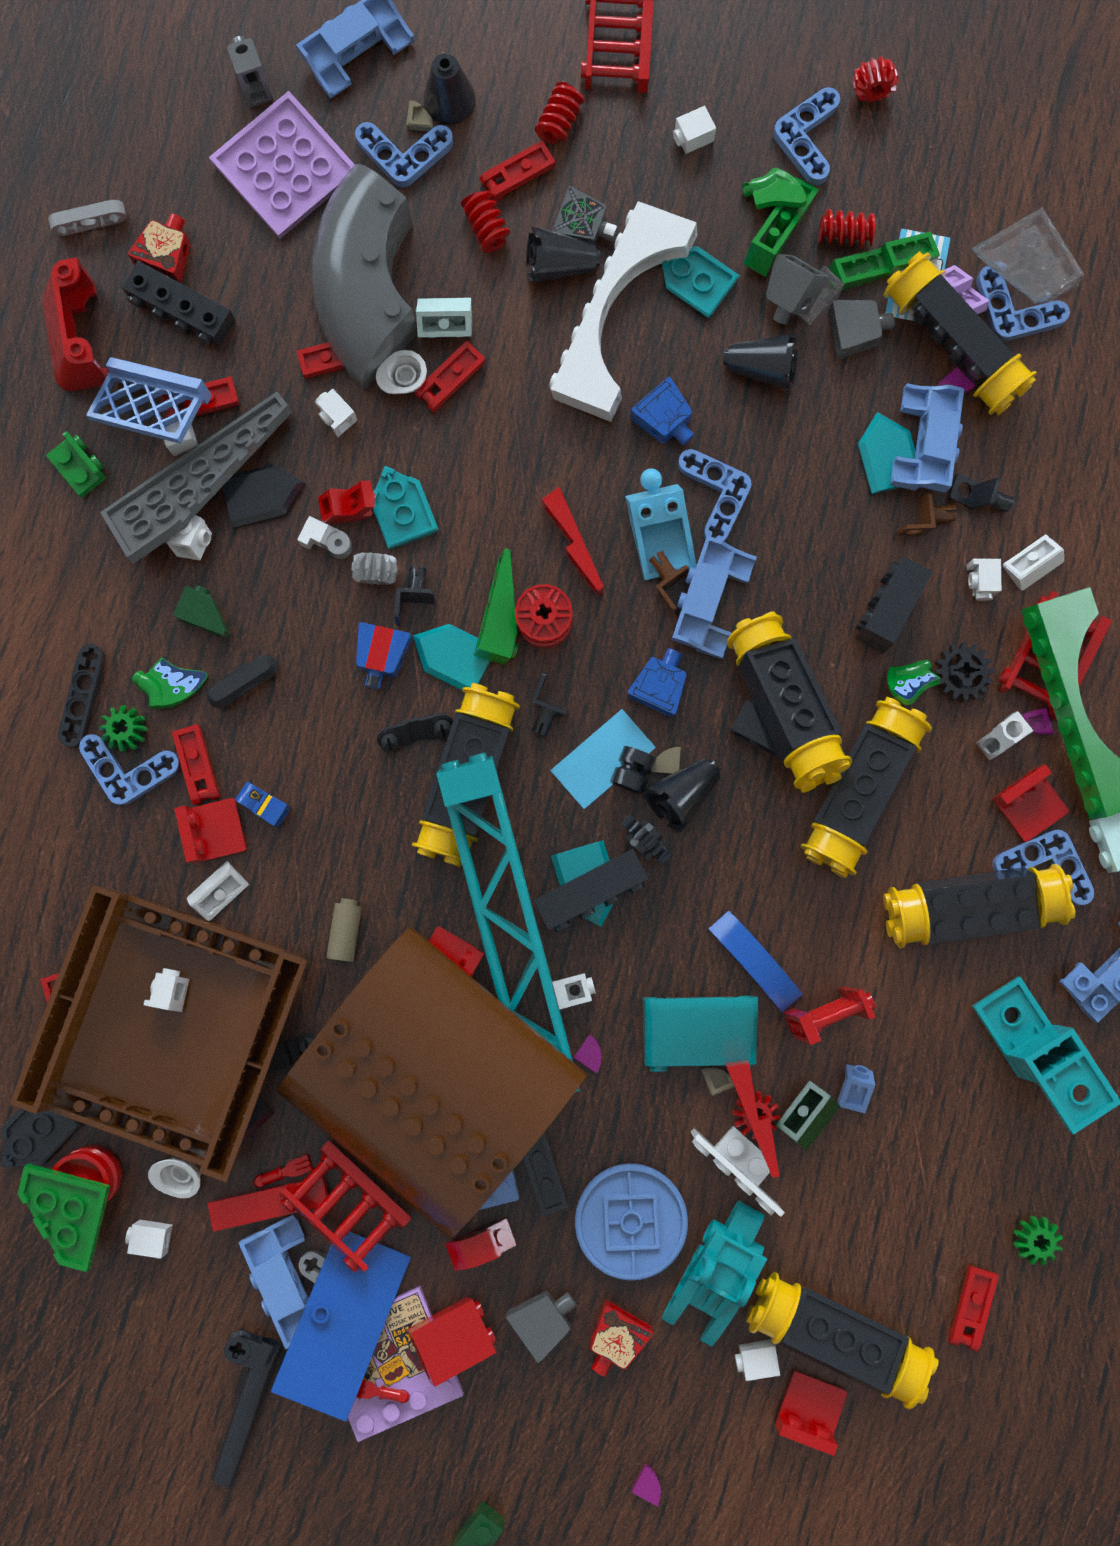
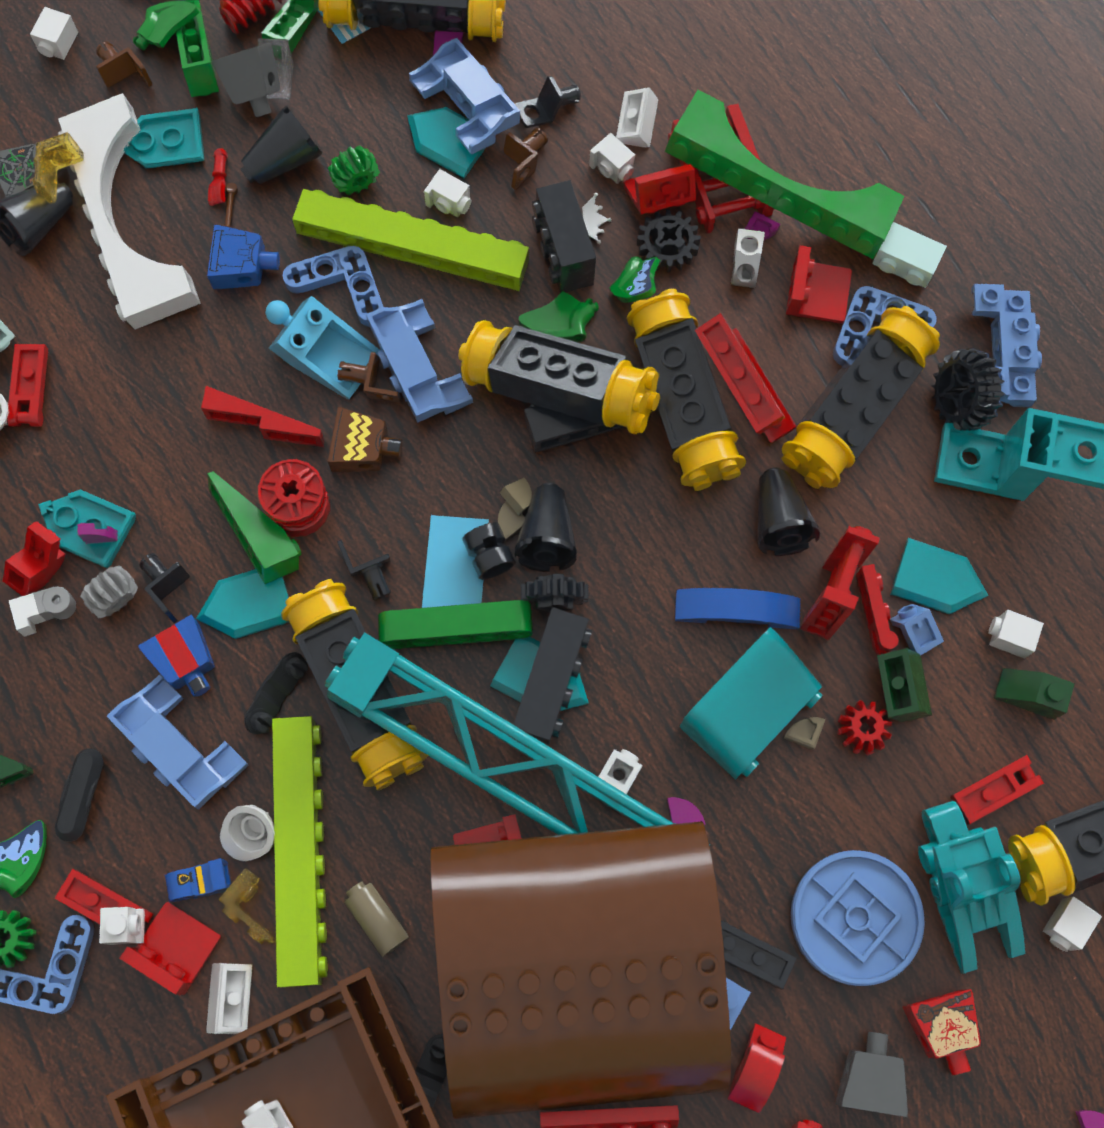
camera: 50 degrees left, 10 degrees down
(193, 789) = (121, 925): none -> white brick
(283, 835) = (243, 890): none -> clear yellow bracket
(318, 705) = (176, 759): none -> medium blue bracket
(318, 804) = (247, 833): none -> white piece
(336, 844) = (297, 853): none -> lime brick
(397, 519) = (90, 535): none -> magenta tile
(565, 797) = (455, 624): none -> green beam
(605, 227) = (51, 156): none -> clear yellow bracket
(622, 618) = (360, 443): none -> reddish brown torso
(660, 684) = (444, 465): blue torso -> none
(688, 751) = (518, 495): none -> dark tan tile
(700, 346) = (216, 189): none -> red piece
(707, 357) = (231, 189): none -> reddish brown hinge
(715, 193) = (119, 65): none -> reddish brown bracket
(743, 1159) = (892, 774): white bracket -> none
(761, 1125) = (880, 727): red slope -> none
(791, 507) = (411, 239): none -> lime brick
(799, 421) = (353, 170): none -> green gear
(799, 1236) = (996, 790): none -> red plate
(836, 657) = (562, 317): none -> green arm
(841, 1051) = (876, 611): none -> red plate
(845, 931) = (783, 516): none -> black cone
(846, 498) = (448, 194): none -> white brick
(857, 325) = (327, 66): dark grey torso -> none
(888, 1202) = (1034, 692): none -> dark green slope
(905, 1069) = (936, 578): none -> teal tile
(911, 820) = (745, 378): none -> red fence
(916, 1154) = (1015, 633): none -> white brick
(928, 607) = (593, 219): none -> white piece
(994, 631) = (662, 189): none -> red bracket
(1055, 971) = (968, 389): none -> black gear

